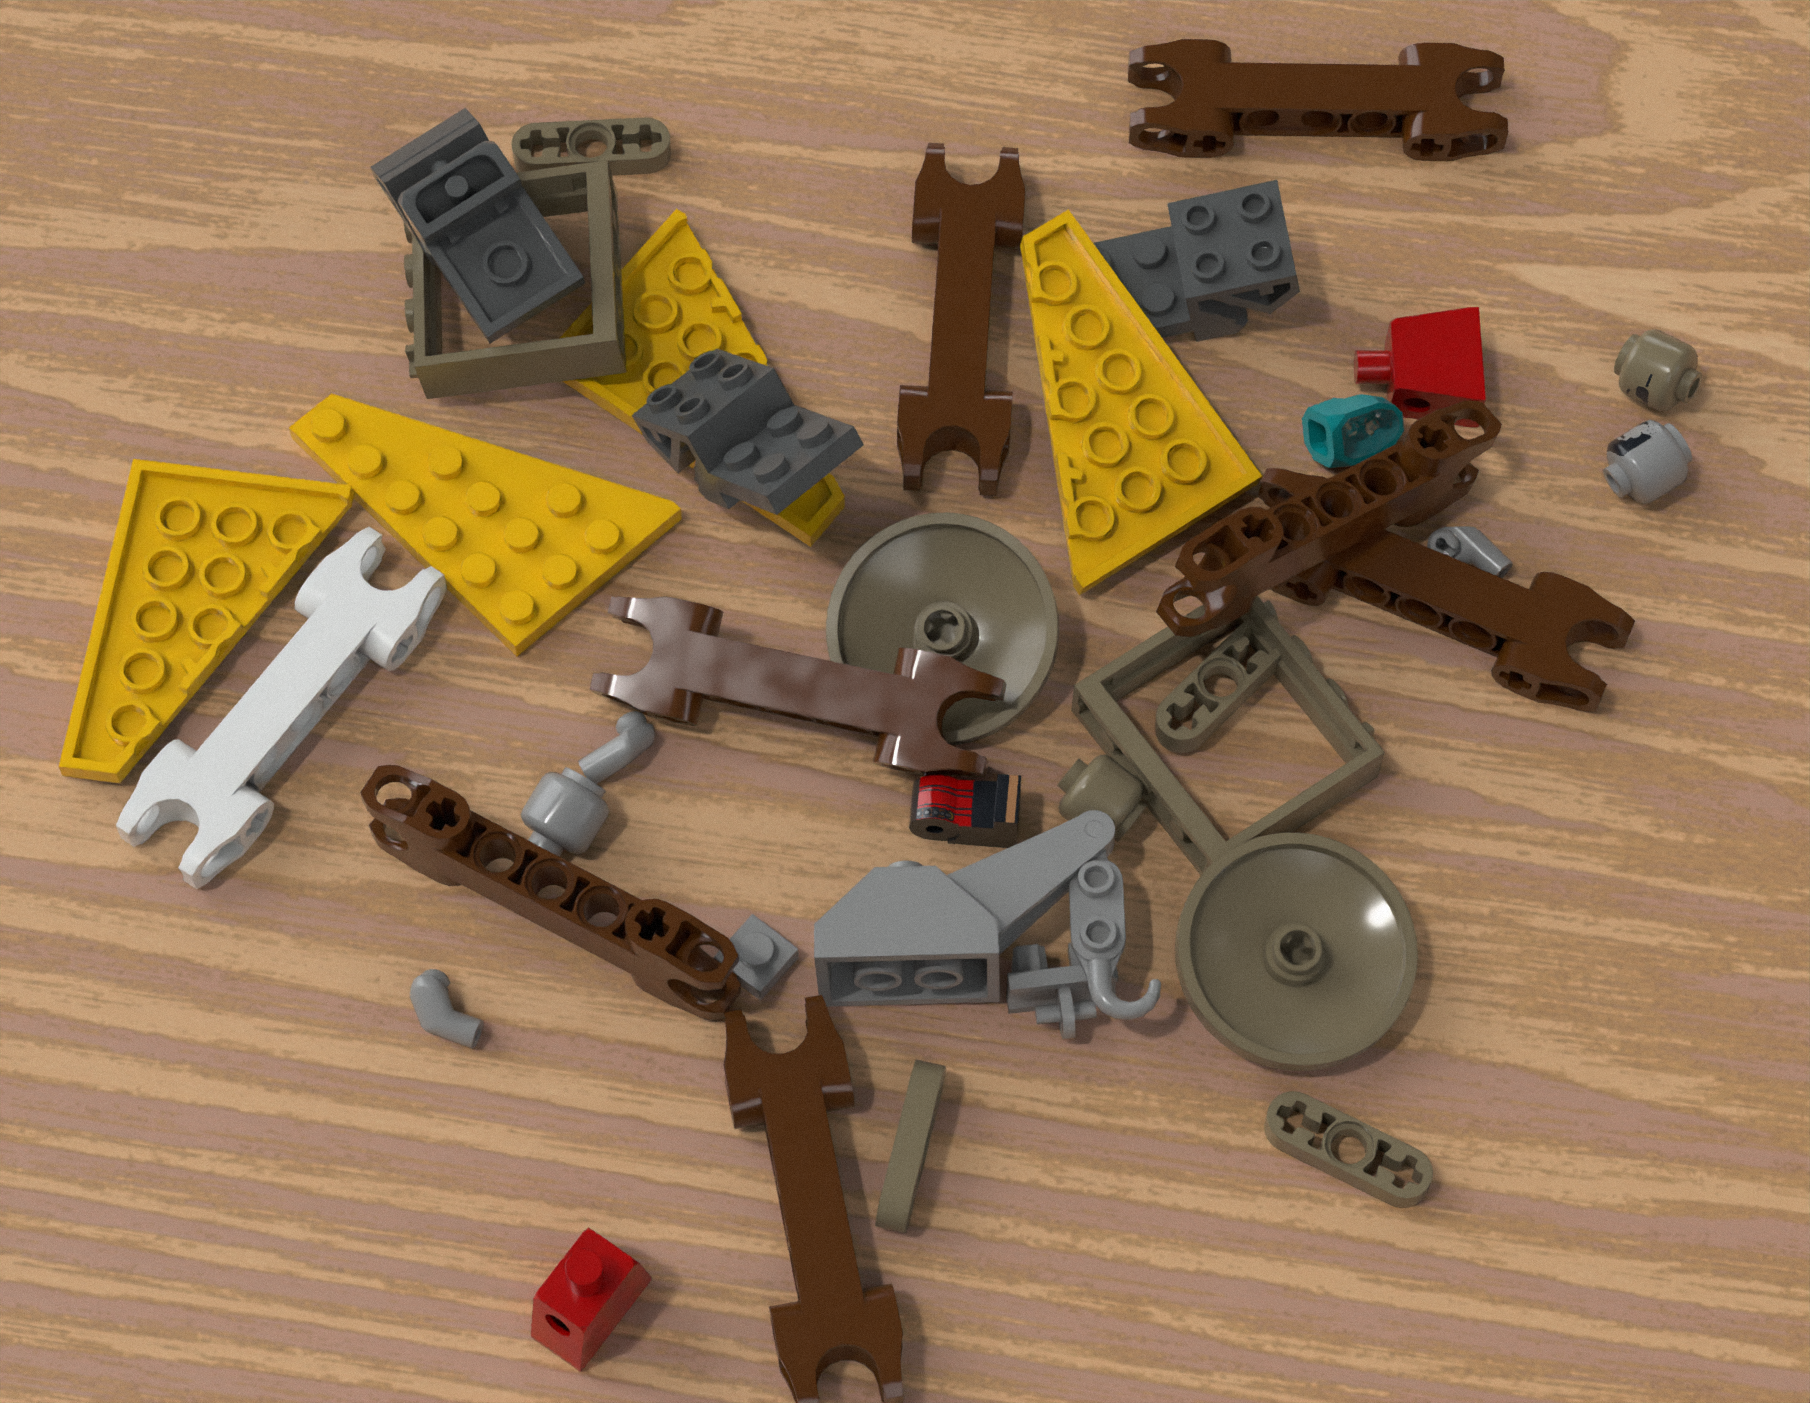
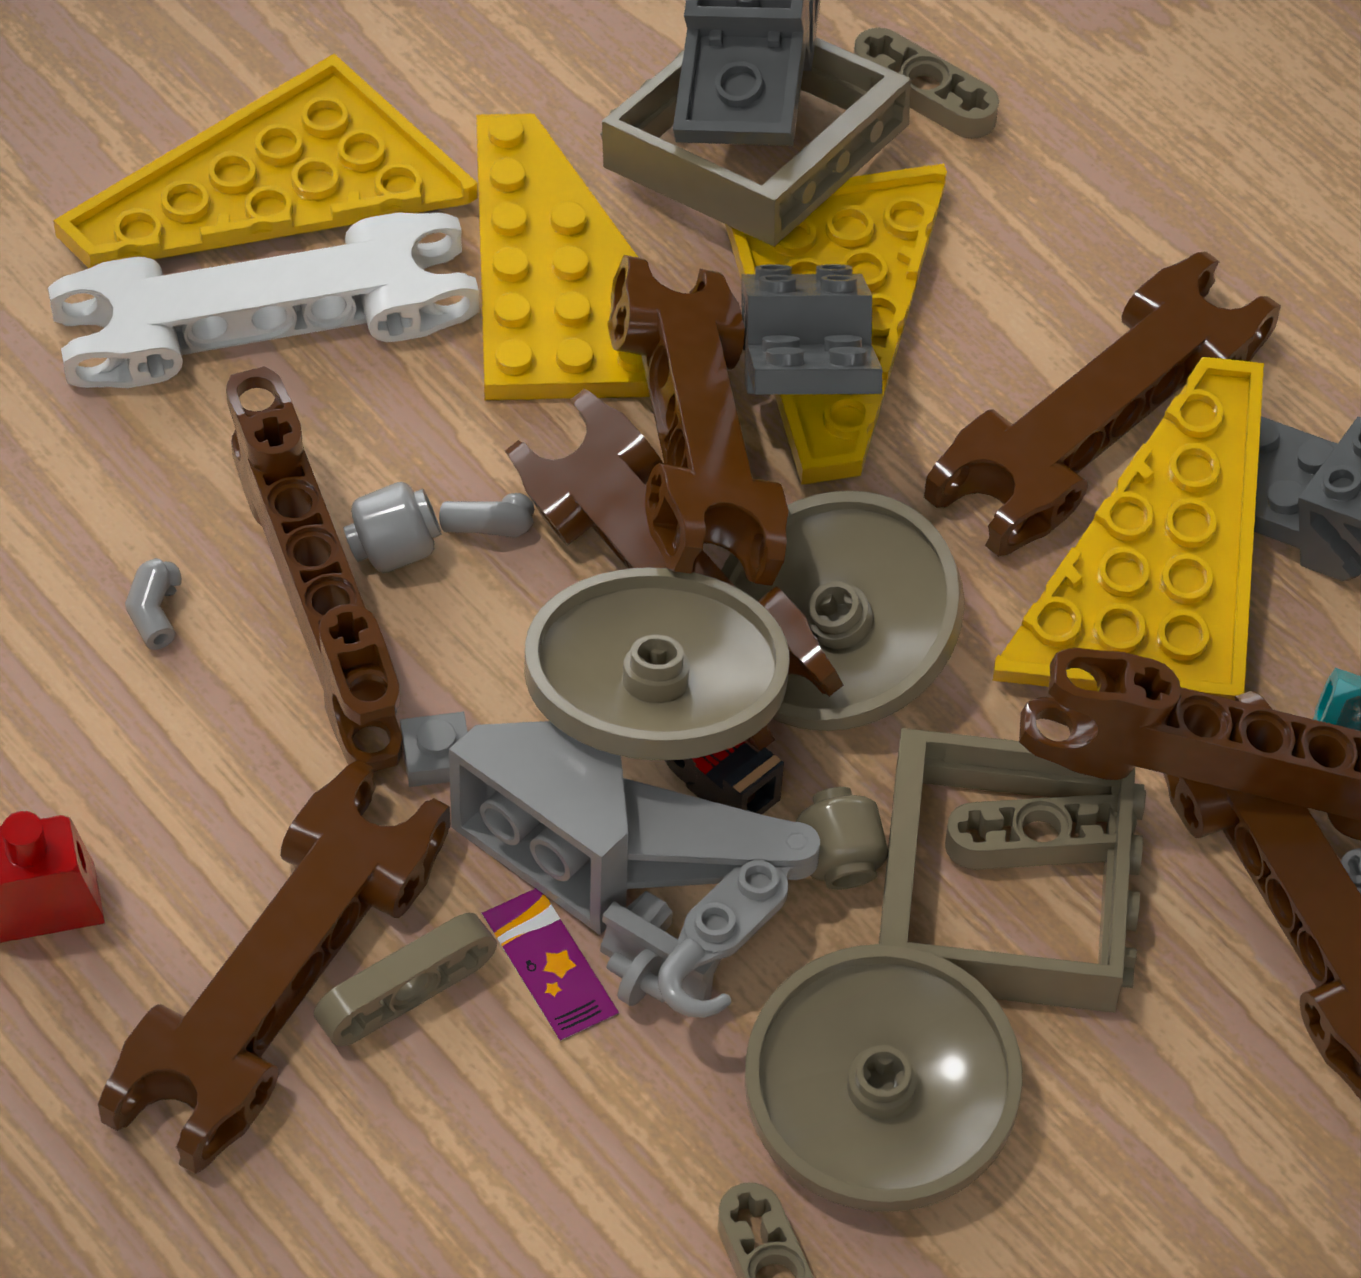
camera: 40 degrees right, 10 degrees down
(786, 608) = (706, 479): none -> reddish brown piece
(892, 776) = (656, 664): none -> dark tan dish
(984, 1050) = (550, 963): none -> magenta sticker

